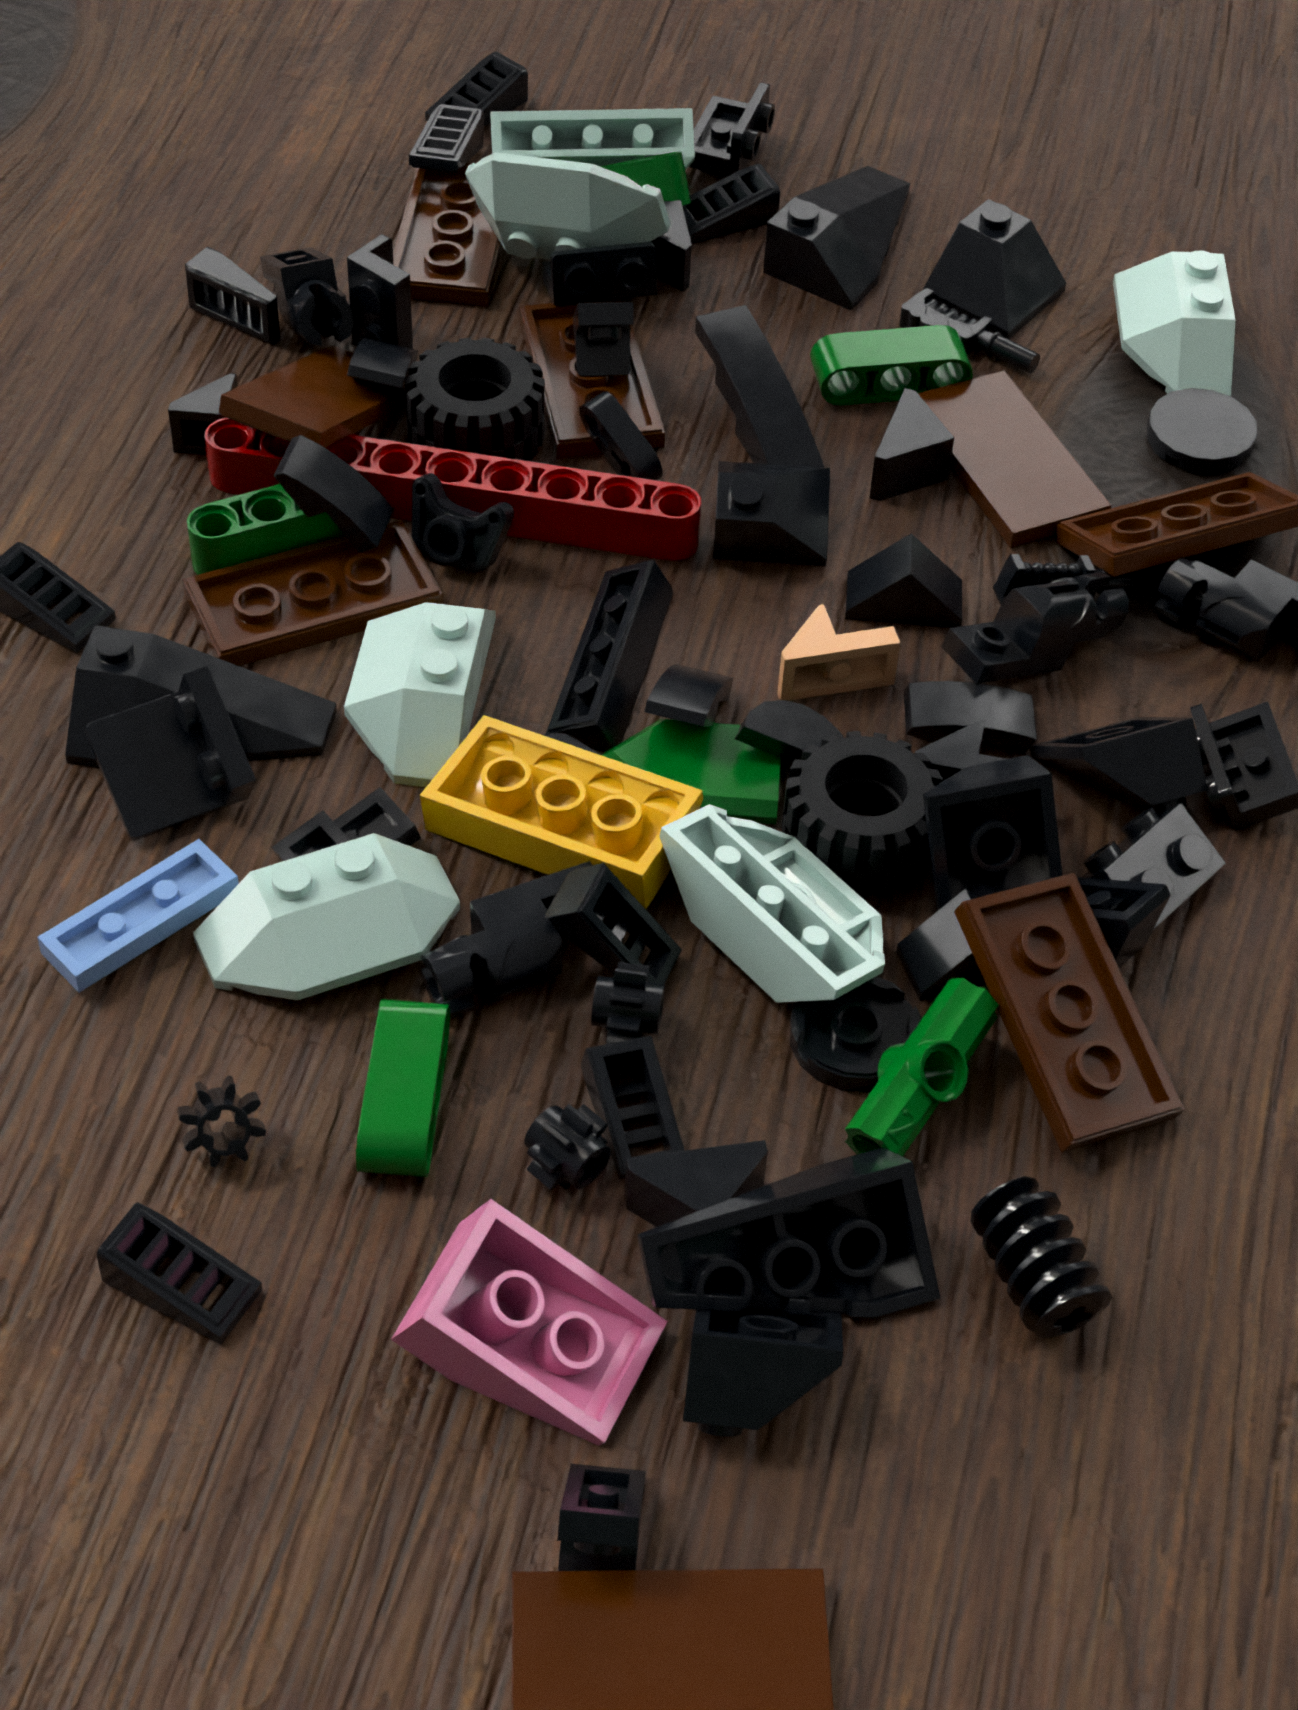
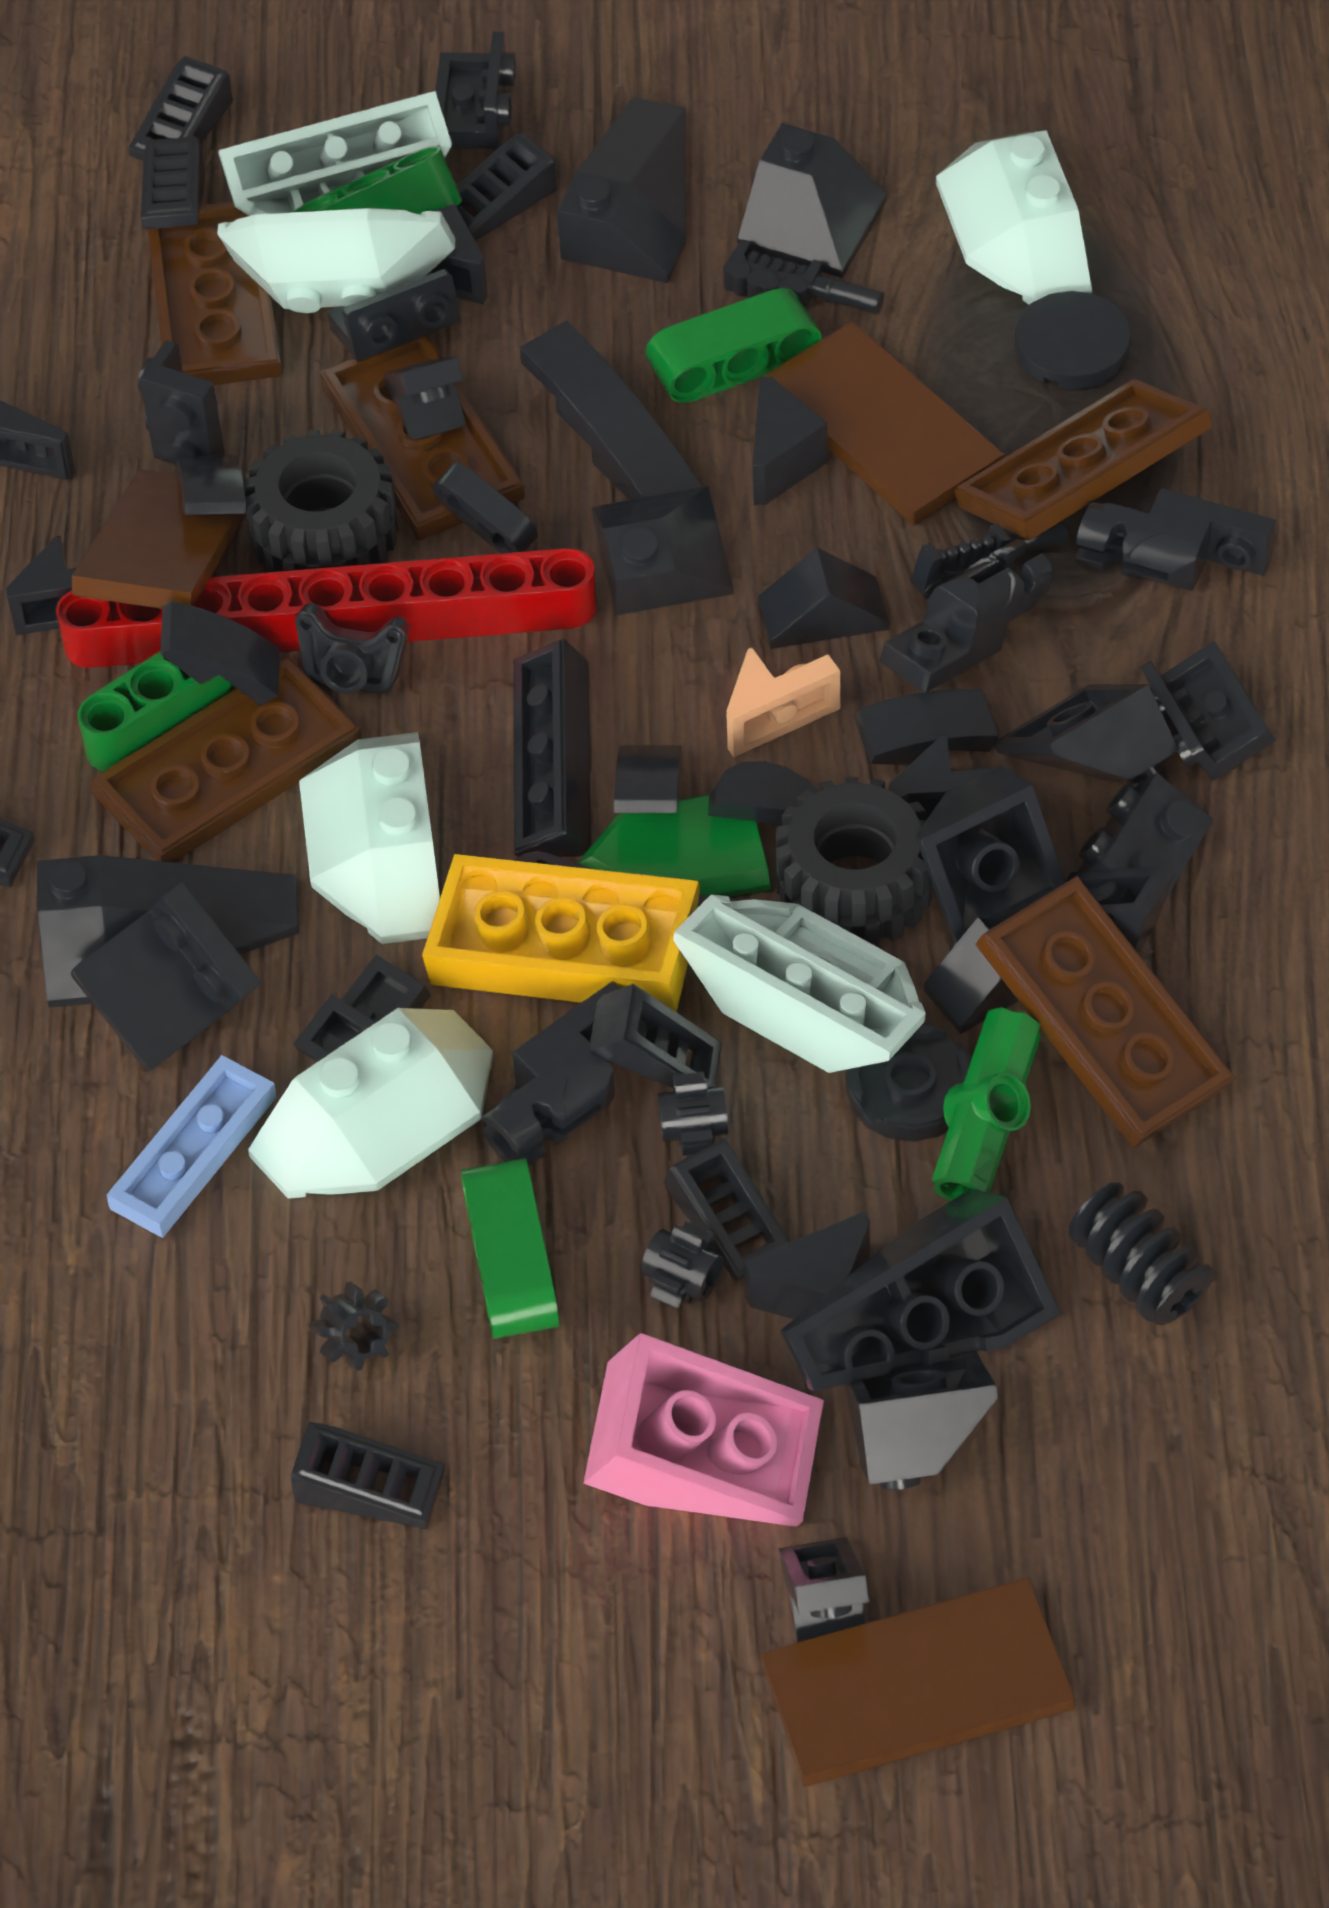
camera: 10 degrees left, 5 degrees up
(309, 294) = (96, 416): black plate -> none

